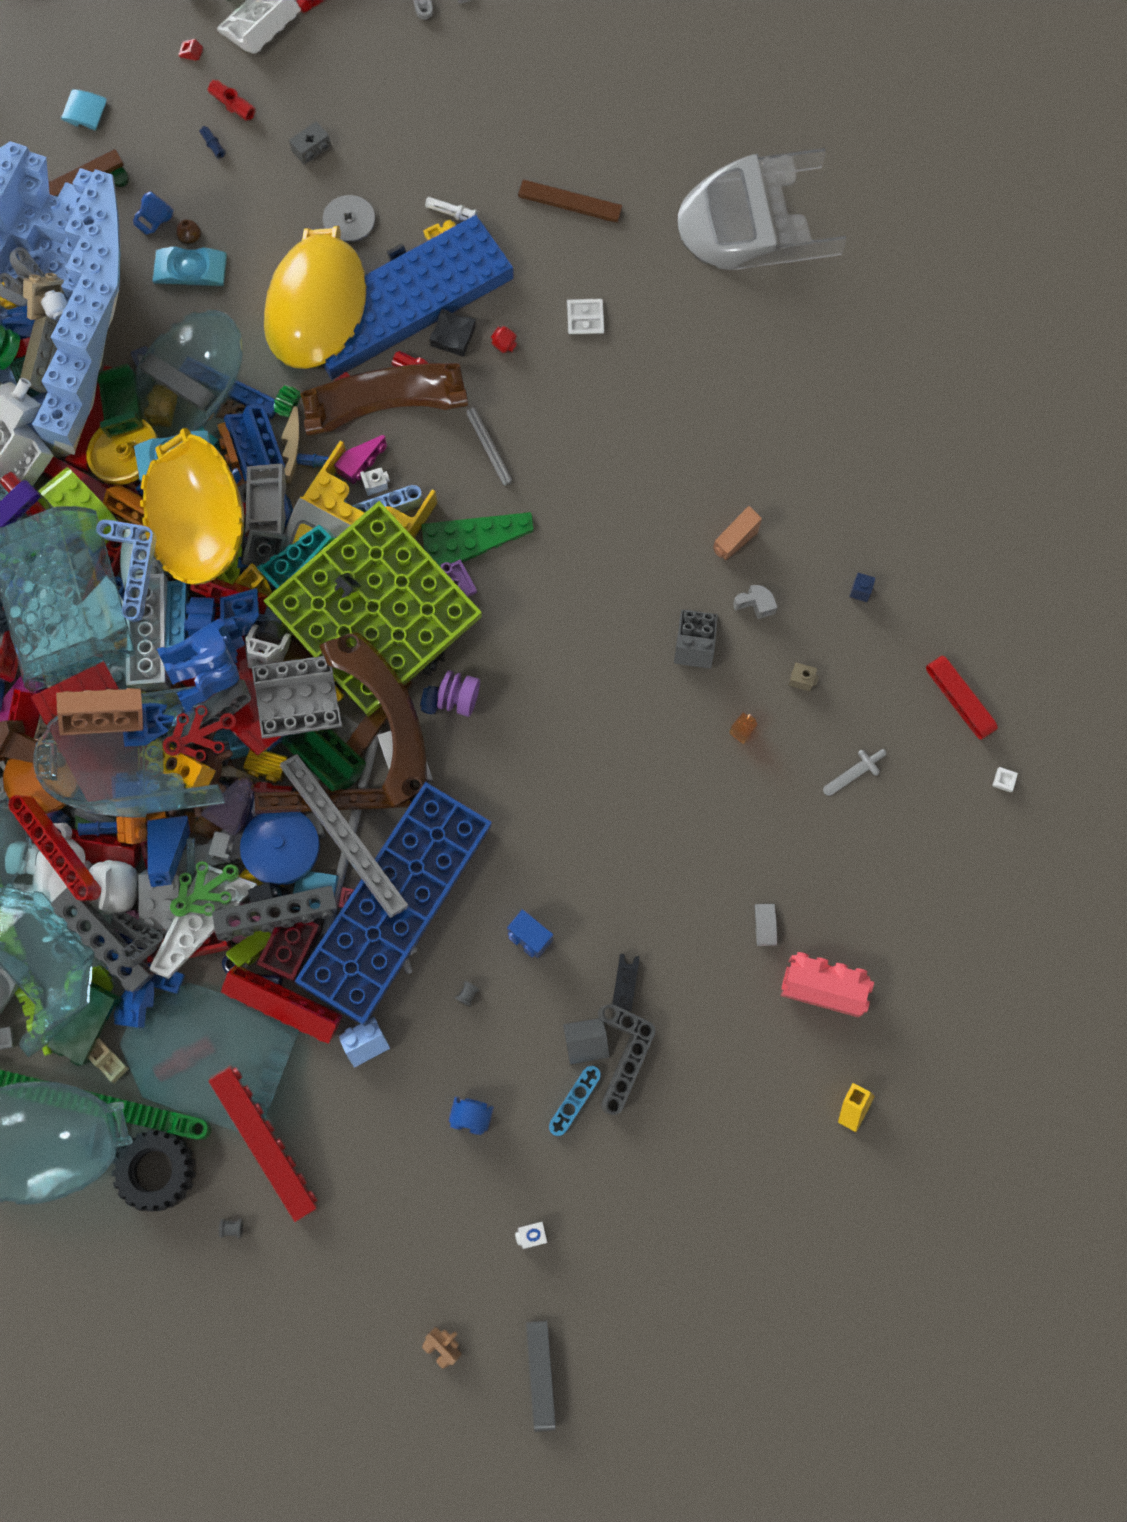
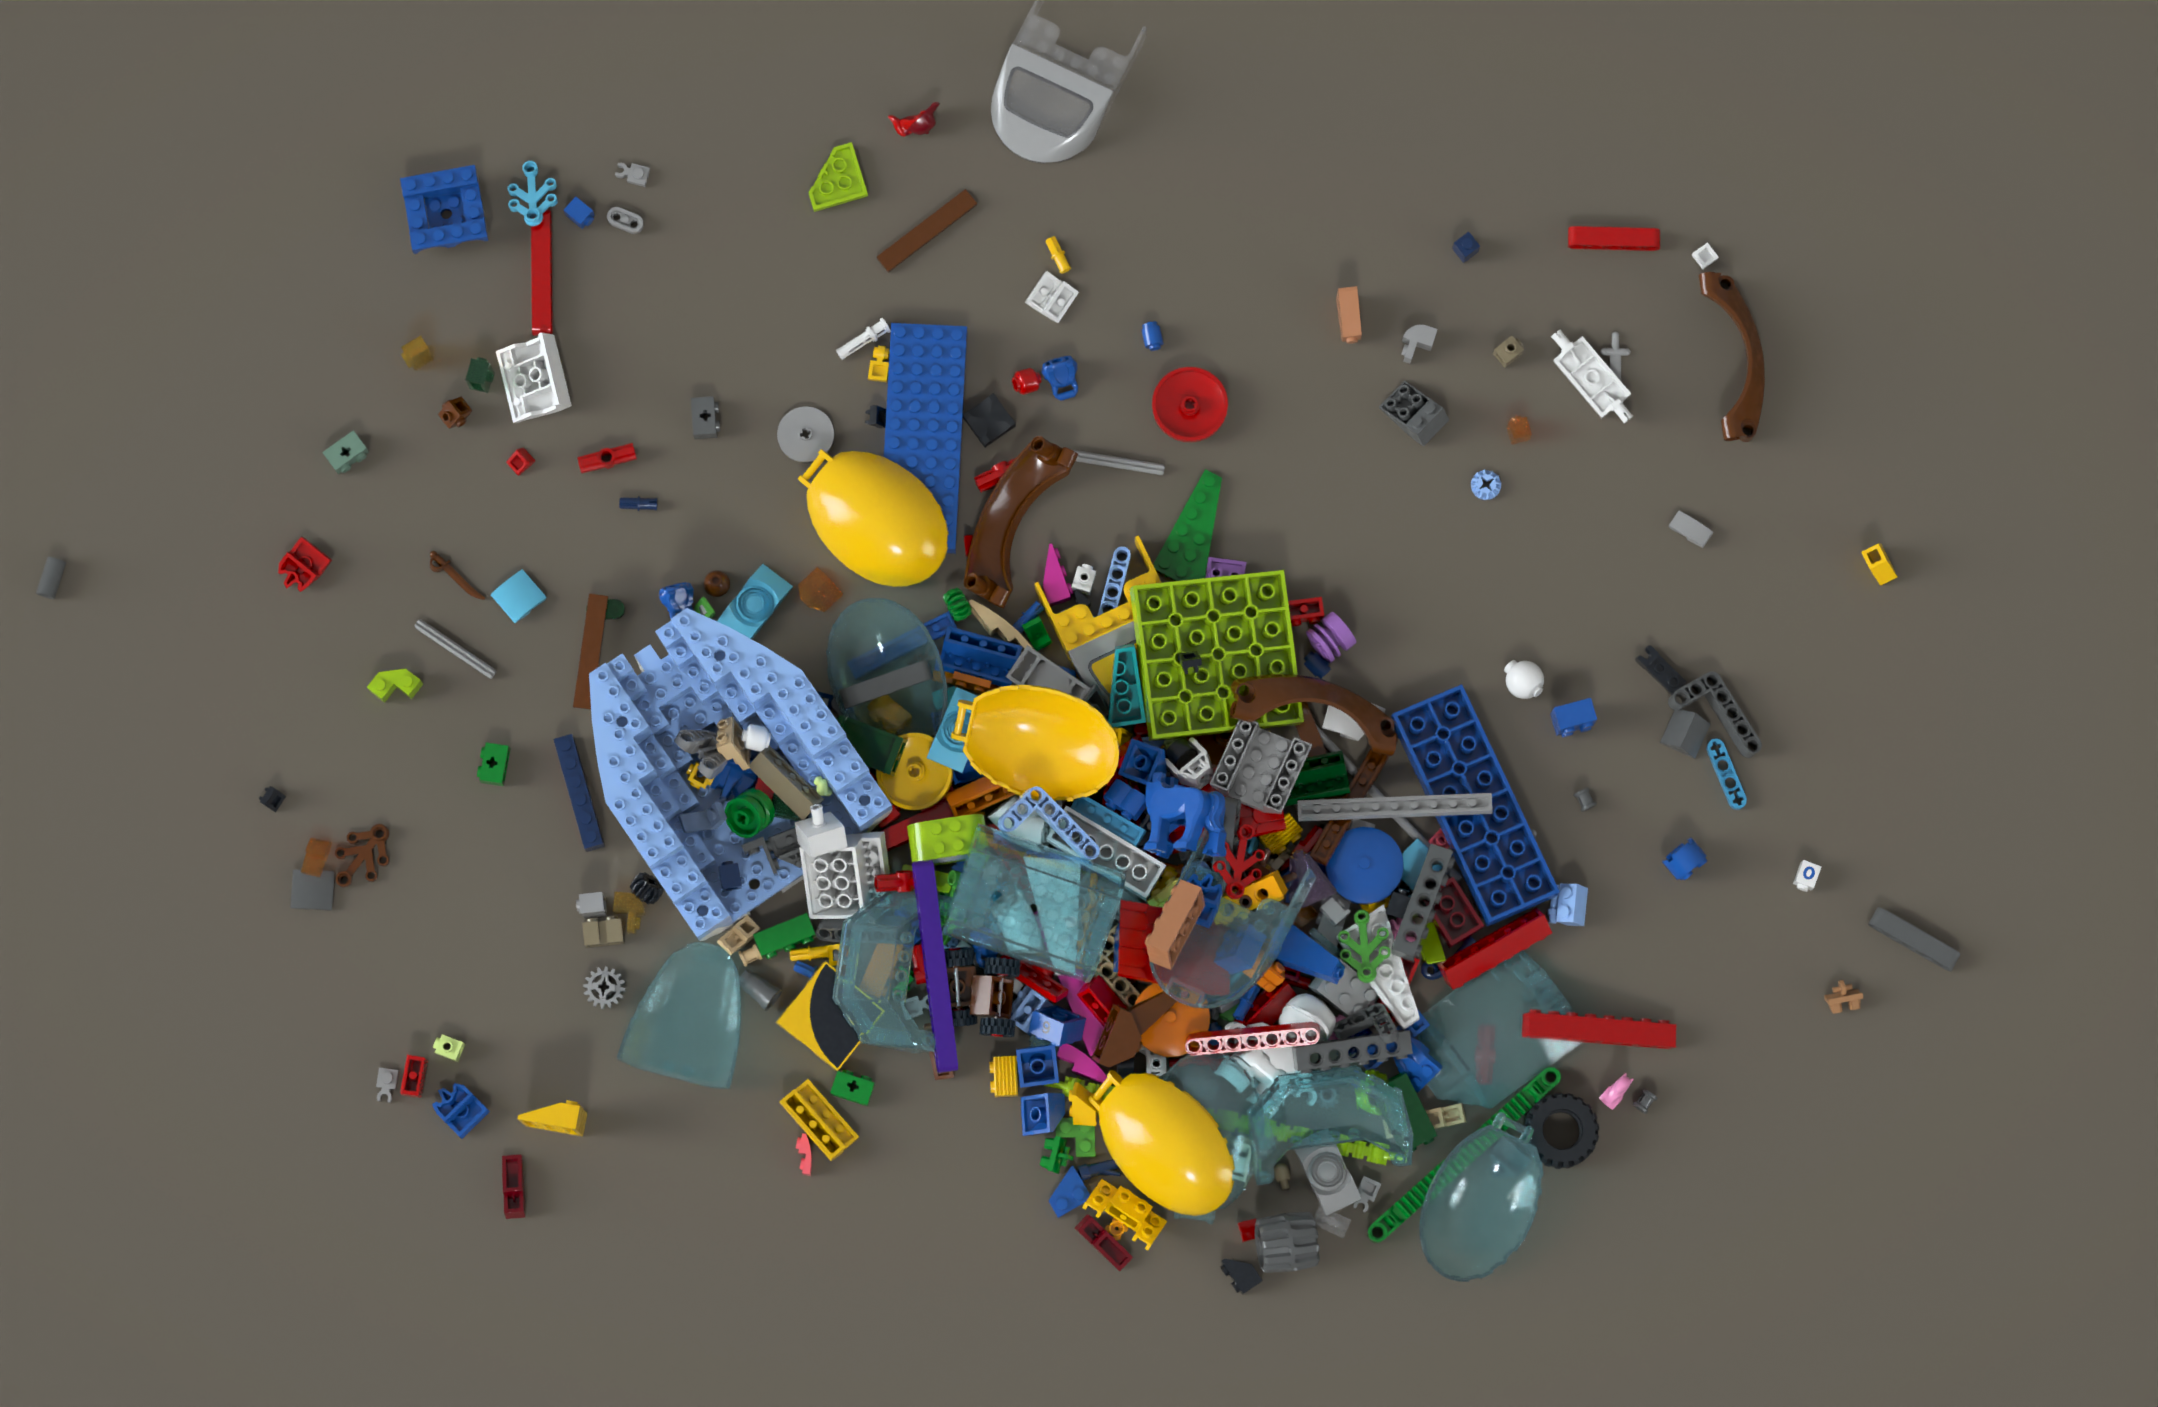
camera: 55 degrees left, 5 degrees up
(15, 93) = (455, 648): none -> light grey axle
(74, 51) = (453, 574): none -> reddish brown sword
(162, 236) = (704, 608): none -> bright green slope
(218, 1195) = (1615, 1092): none -> bright pink animal
(232, 302) = (818, 591): none -> clear orange slope
(305, 474) = (1037, 633): none -> green bracket
(355, 490) = (1081, 599): none -> black slope
(466, 658) = (1306, 610): none -> red brick
(528, 359) = (1061, 373): none -> blue piece
(535, 872) = (1524, 679): none -> white brick
(562, 118) = (838, 180): none -> lime plate
(573, 465) = (1189, 404): none -> red dish
(608, 404) = (1152, 336): none -> blue brick
(621, 300) = (1058, 255): none -> yellow axle
(647, 140) = (916, 124): none -> hair
(671, 737) = (1485, 493): none -> light blue gear
(827, 985) = (1773, 516): coral brick -> none
(832, 756) = (1591, 377): none -> white plate
(910, 898) = (1748, 408): none -> reddish brown panel

